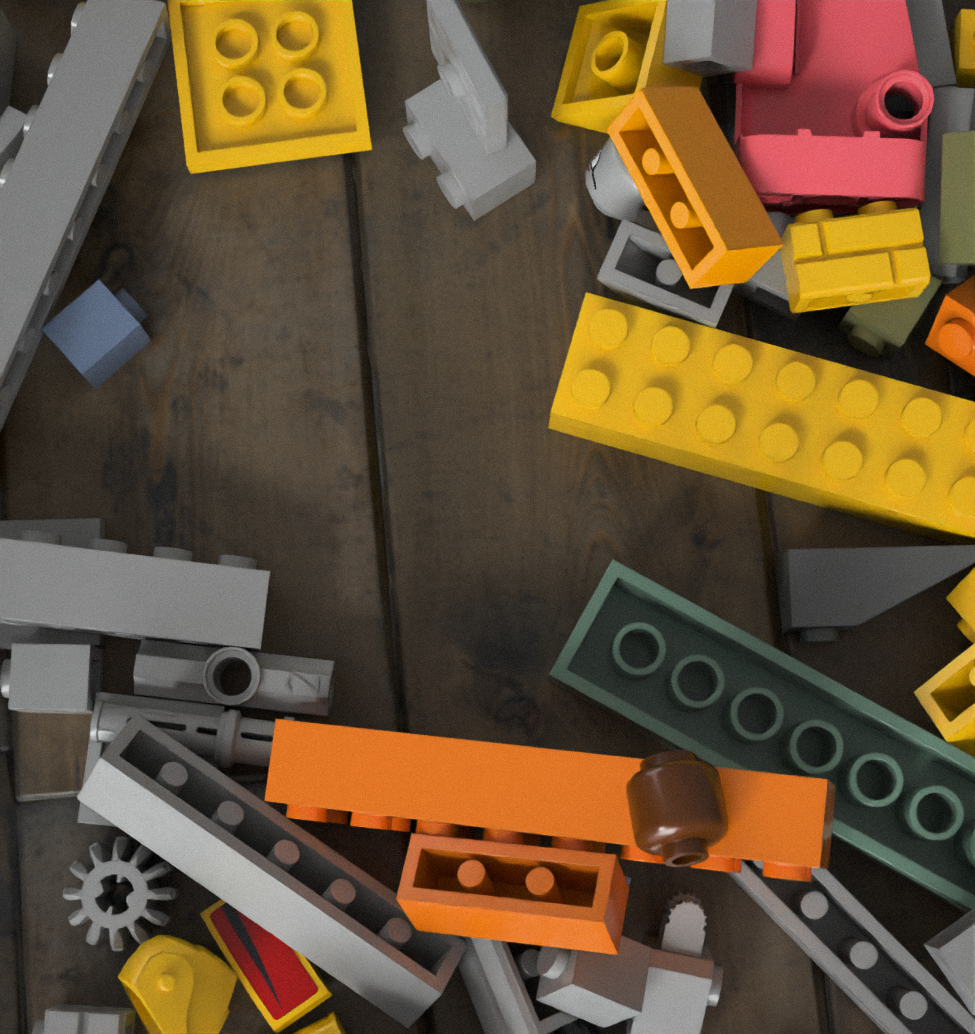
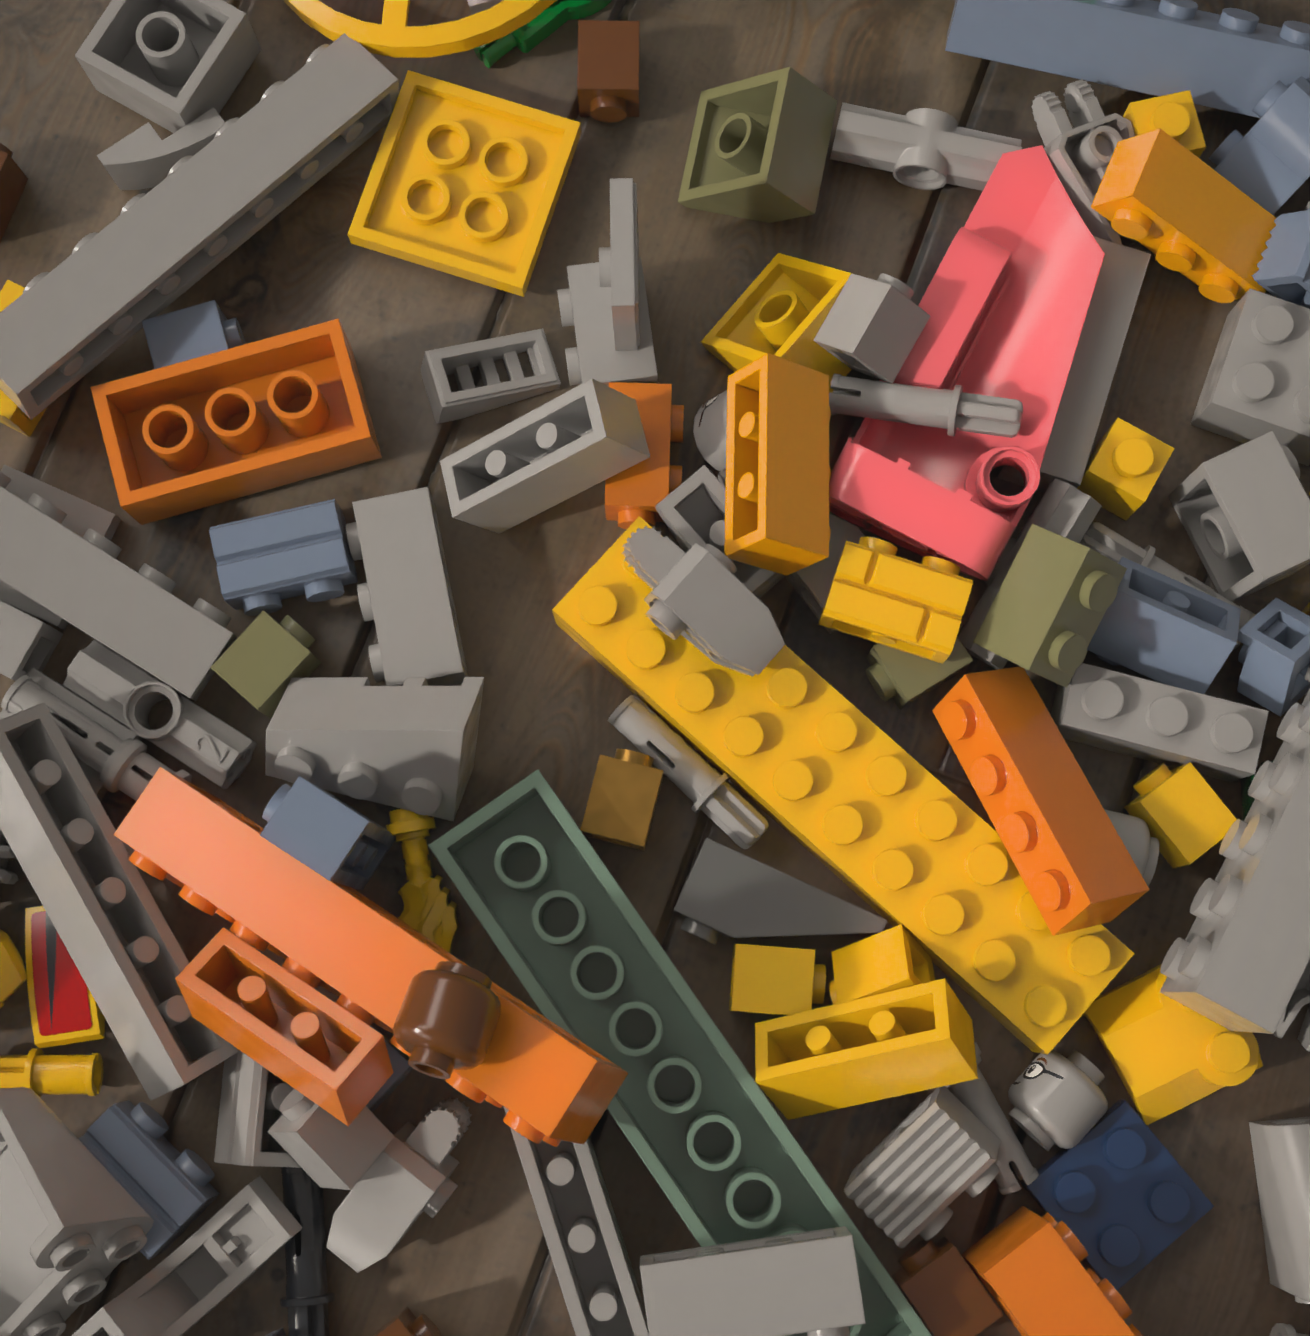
camera: 25 degrees right, 0 degrees up
(175, 379) = (235, 422): none -> orange brick
(277, 482) = (283, 557): none -> sand blue brick
(311, 583) = (266, 660): none -> olive brick
(338, 247) = (494, 394): none -> light grey slope
(405, 461) = (407, 589): none -> light grey brick
(453, 605) = (379, 742): none -> light grey wedge
(453, 701) = (325, 833): none -> sand blue brick
(476, 279) = (545, 457): none -> light grey brick
(550, 238) = (646, 484): none -> orange brick
(553, 724) = (423, 898): none -> yellow piece
(690, 337) = (703, 601): none -> light grey hinge
(694, 552) = (623, 799): none -> pearl gold brick
(738, 501) = (689, 772): none -> light grey axle
(794, 75) = (926, 406): none -> light grey axle
(906, 647) = (775, 980): none -> yellow brick

